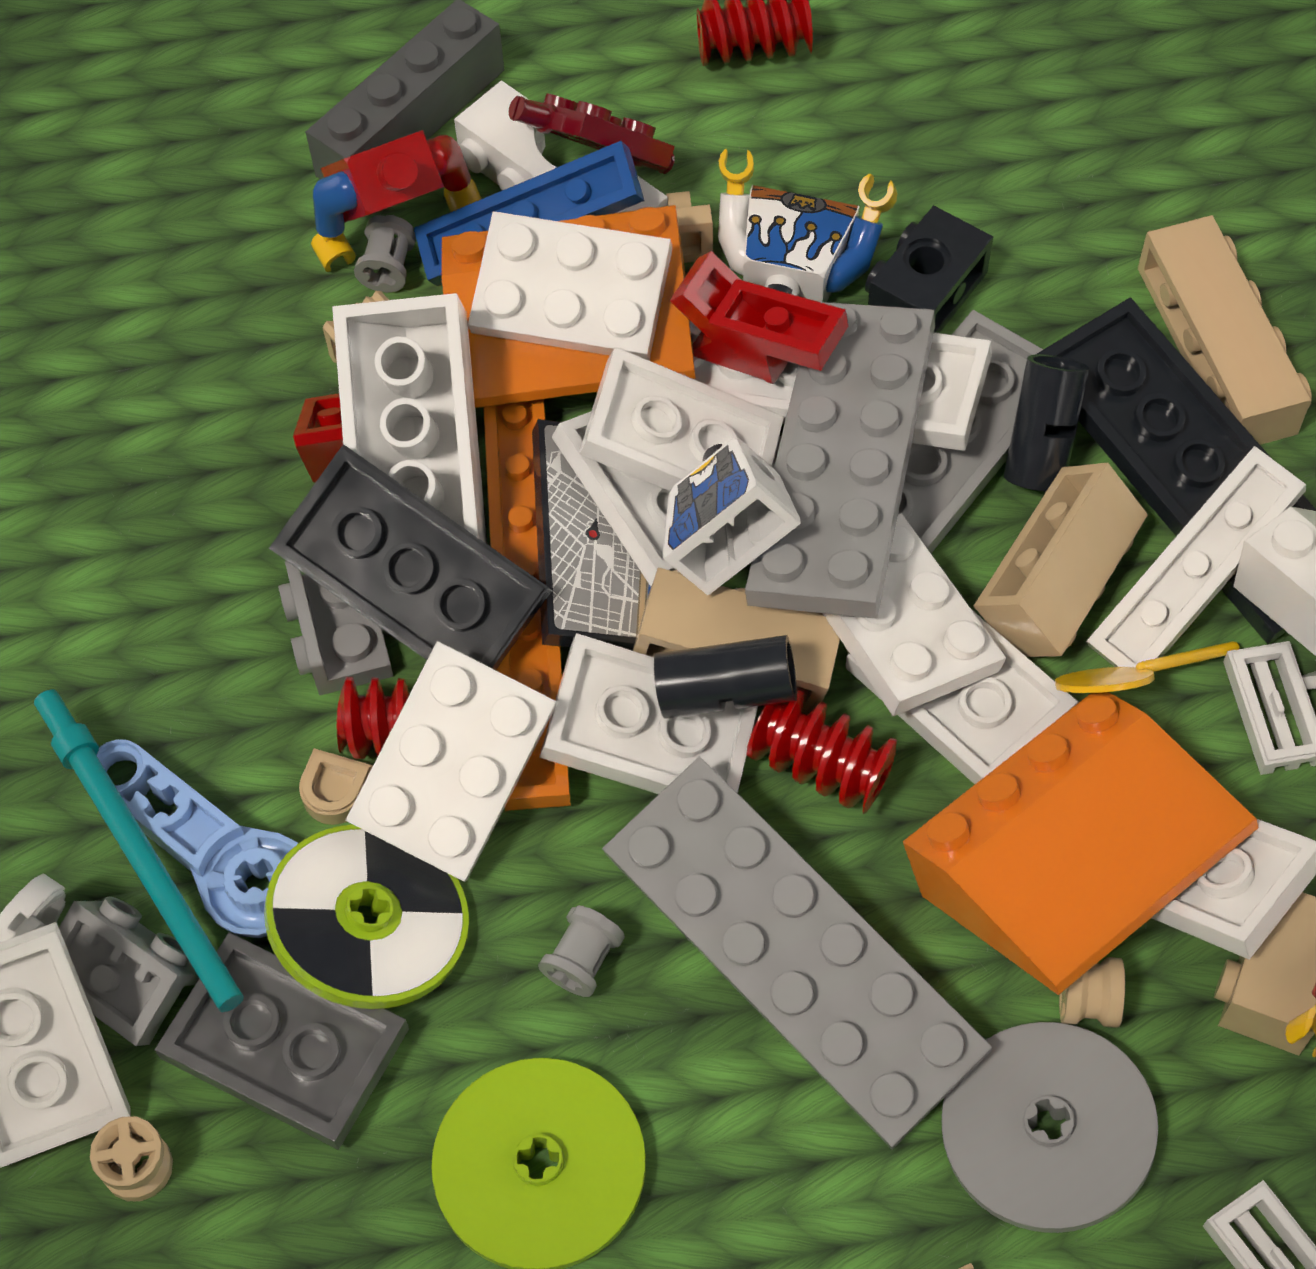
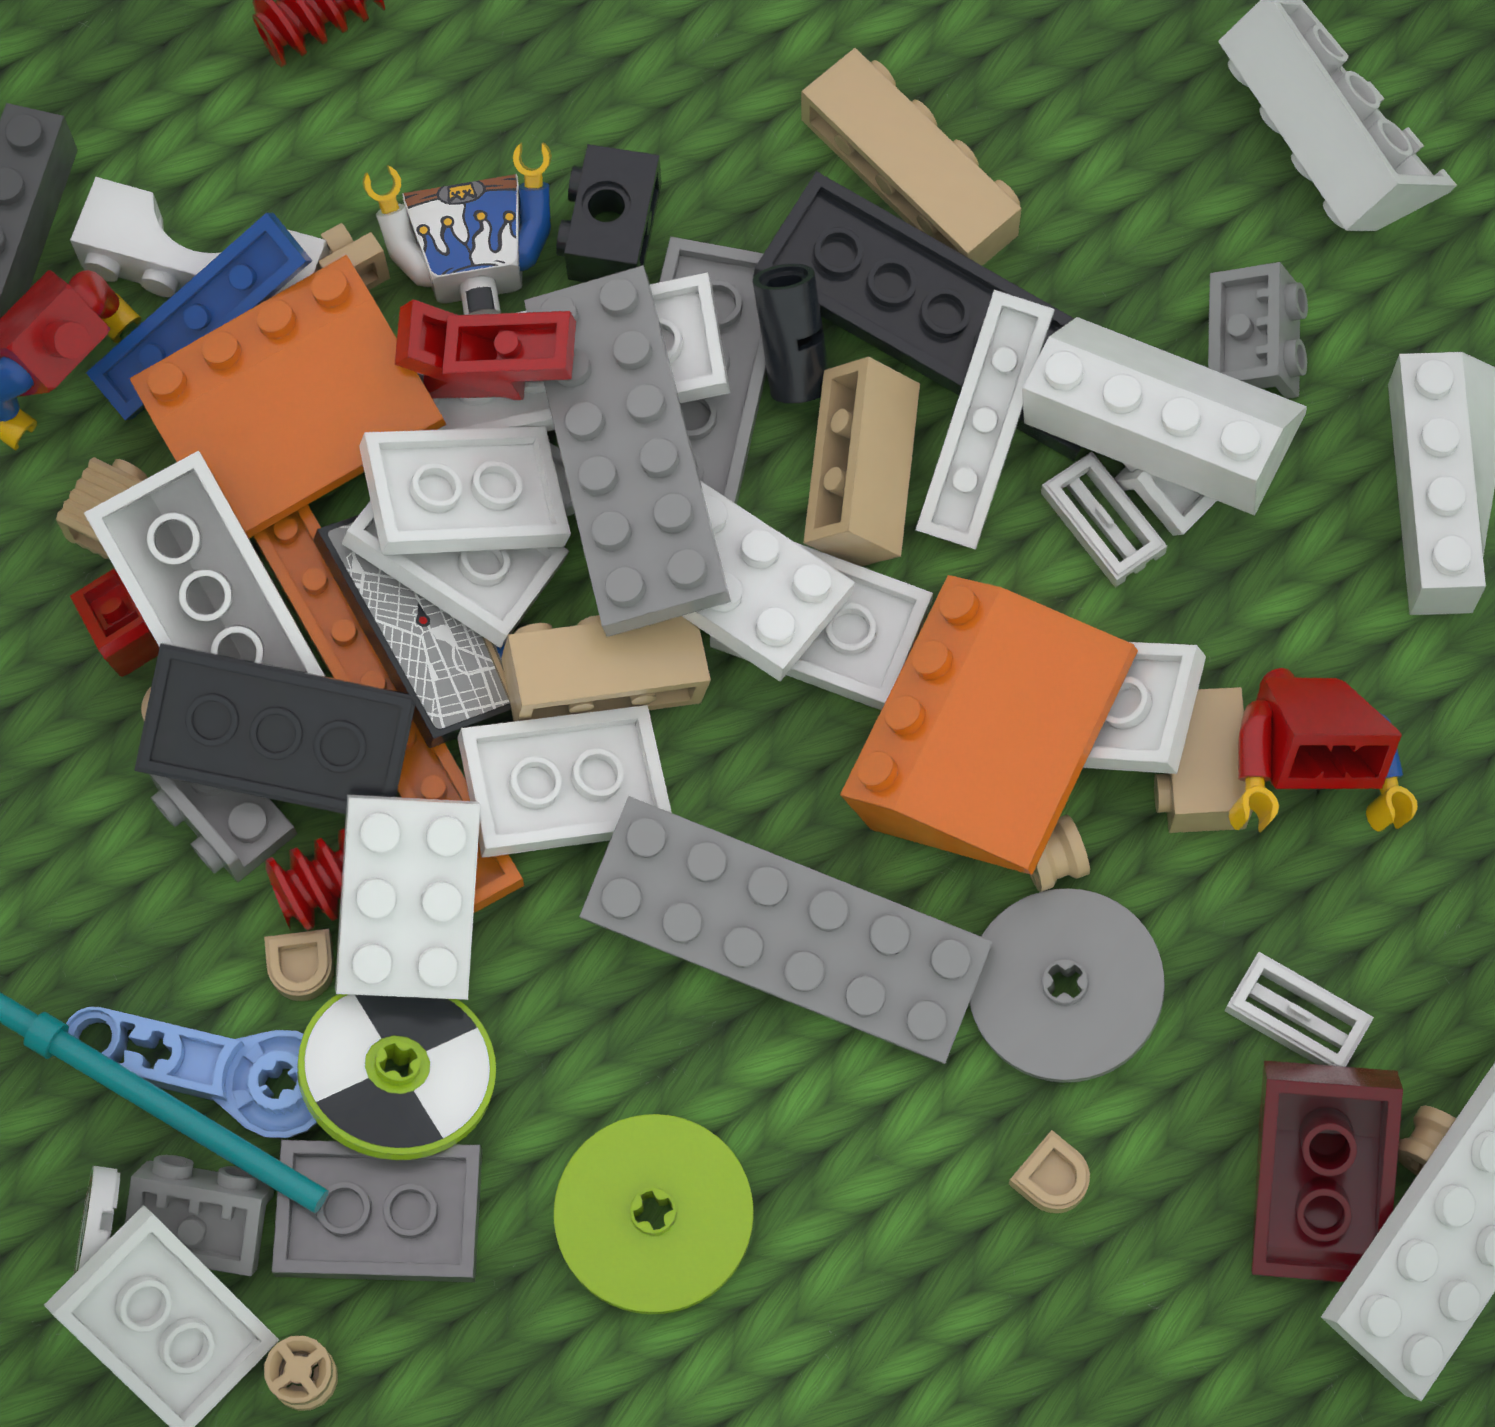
camera: 25 degrees left, 10 degrees up
(385, 253) = (71, 413): light grey bush -> none
(570, 285) = (288, 385): white plate -> none
(581, 951) = (601, 1014): light grey bush -> none
(594, 128) = (219, 201): dark red plate -> none
(709, 676) = (611, 714): black pin -> none
(725, 515) = (551, 560): white torso -> none
(822, 751) = (729, 737): red piece -> none
(1125, 678) = (966, 556): yellow piece -> none

